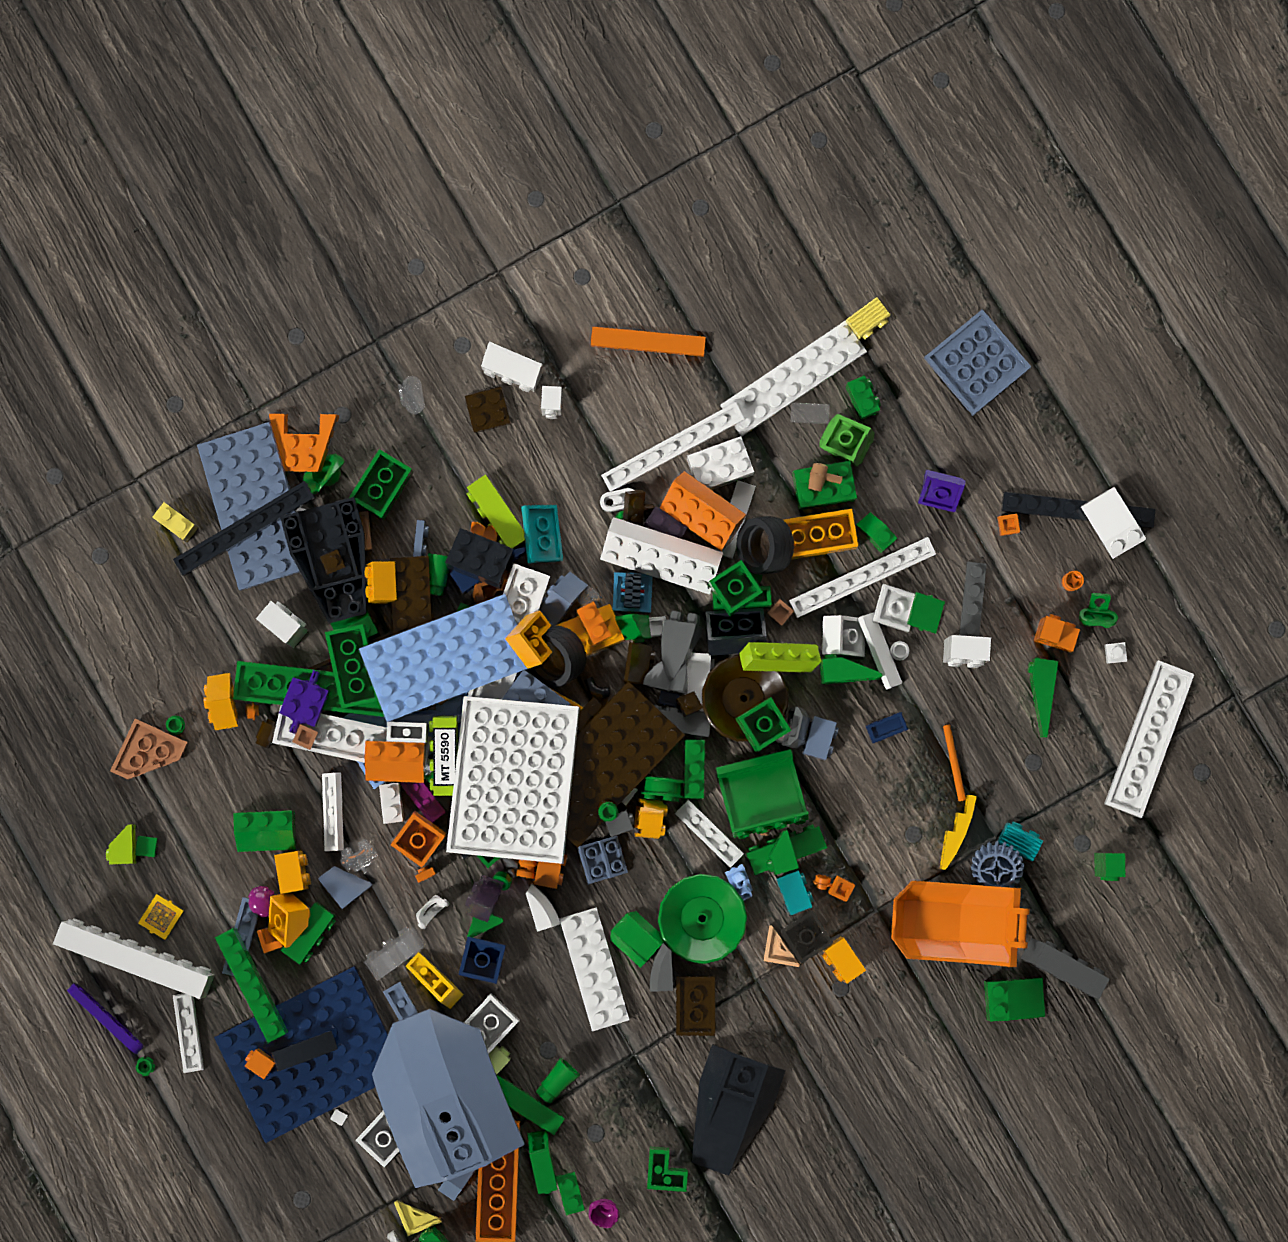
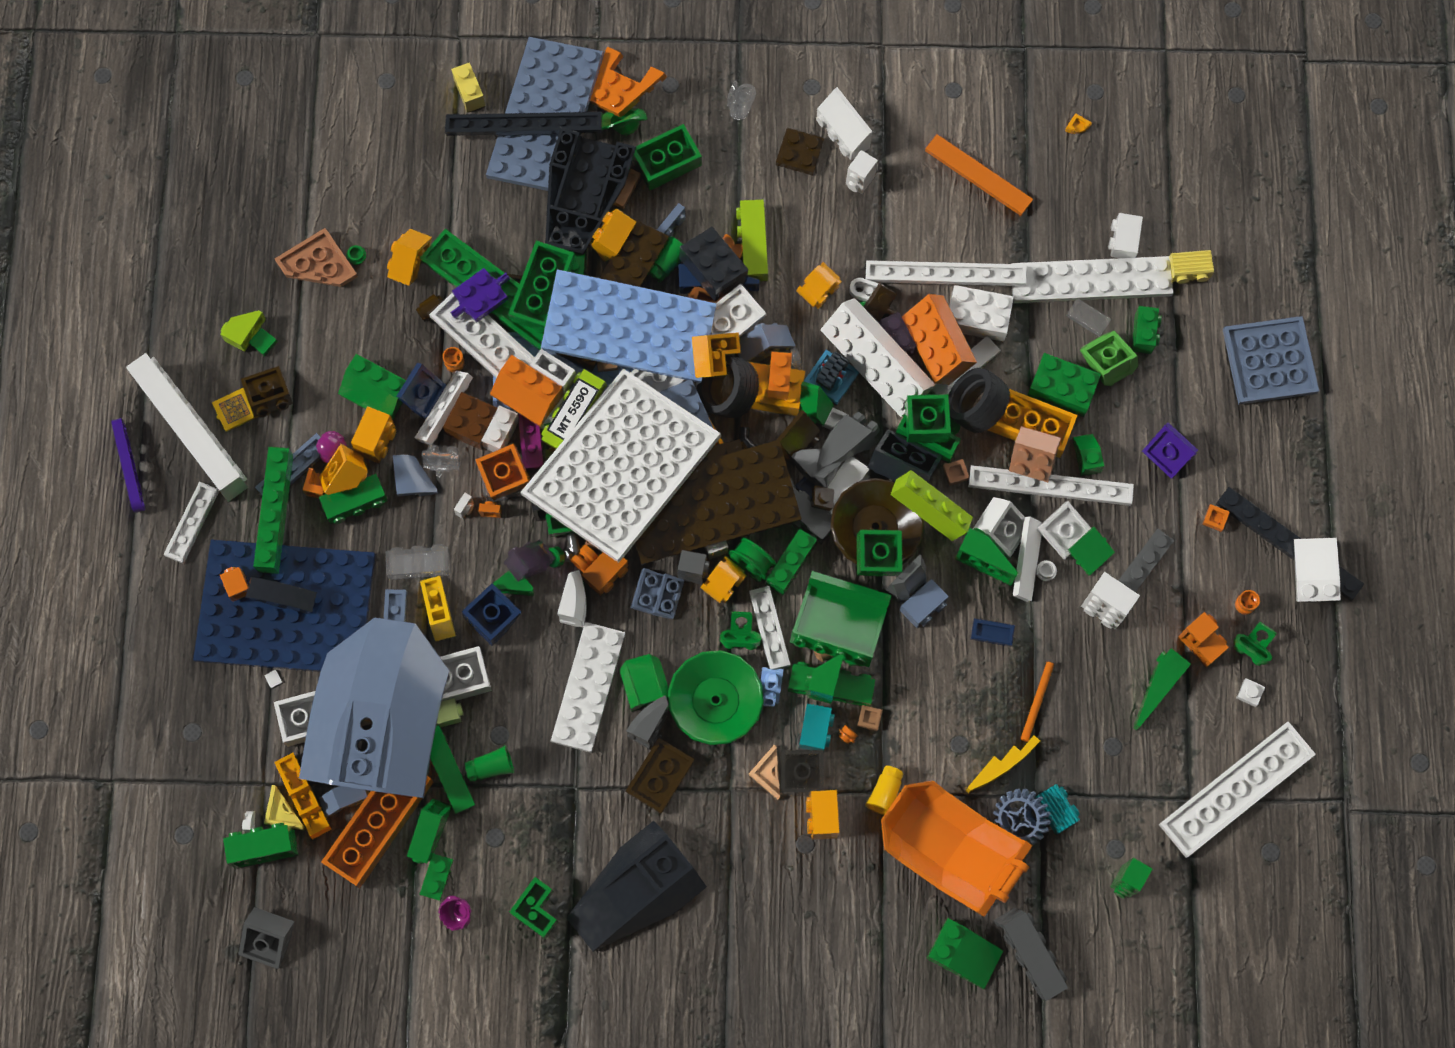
camera: 35 degrees right, 10 degrees down
(140, 1066) = (130, 524): green plate -> none
(178, 888) = (266, 392): none -> dark brown plate
(252, 710) = (430, 281): orange plate -> none
(278, 621) = (505, 218): white brick -> none
(304, 737) = (460, 324): nougat plate -> none
(306, 810) = (421, 390): none -> dark blue plate
(314, 766) = (451, 356): none -> orange wheel
(332, 561) = (582, 194): dark brown plate -> none
(362, 809) = (469, 420): none -> reddish brown brick
(402, 883) = (464, 506): none -> white plate
(423, 919) = (462, 549): white helmet -> none
(424, 1196) = (302, 796): none -> light orange slope
(542, 533) = (781, 279): teal tile -> none
(576, 521) = (818, 285): none -> light orange brick
(608, 811) = (689, 545): green plate -> none
(690, 854) = (740, 636): none -> green bracket
(704, 246) = (1078, 125): none -> light orange tile
(800, 324) = (1126, 236): none -> white brick
(819, 475) = (1064, 367): medium nougat piece -> none
(831, 857) = (869, 718): none -> medium nougat tile
(836, 563) = (1034, 454): none -> nougat brick
(841, 888) = (862, 751): orange plate -> none
(879, 909) = (885, 790): none -> yellow plant

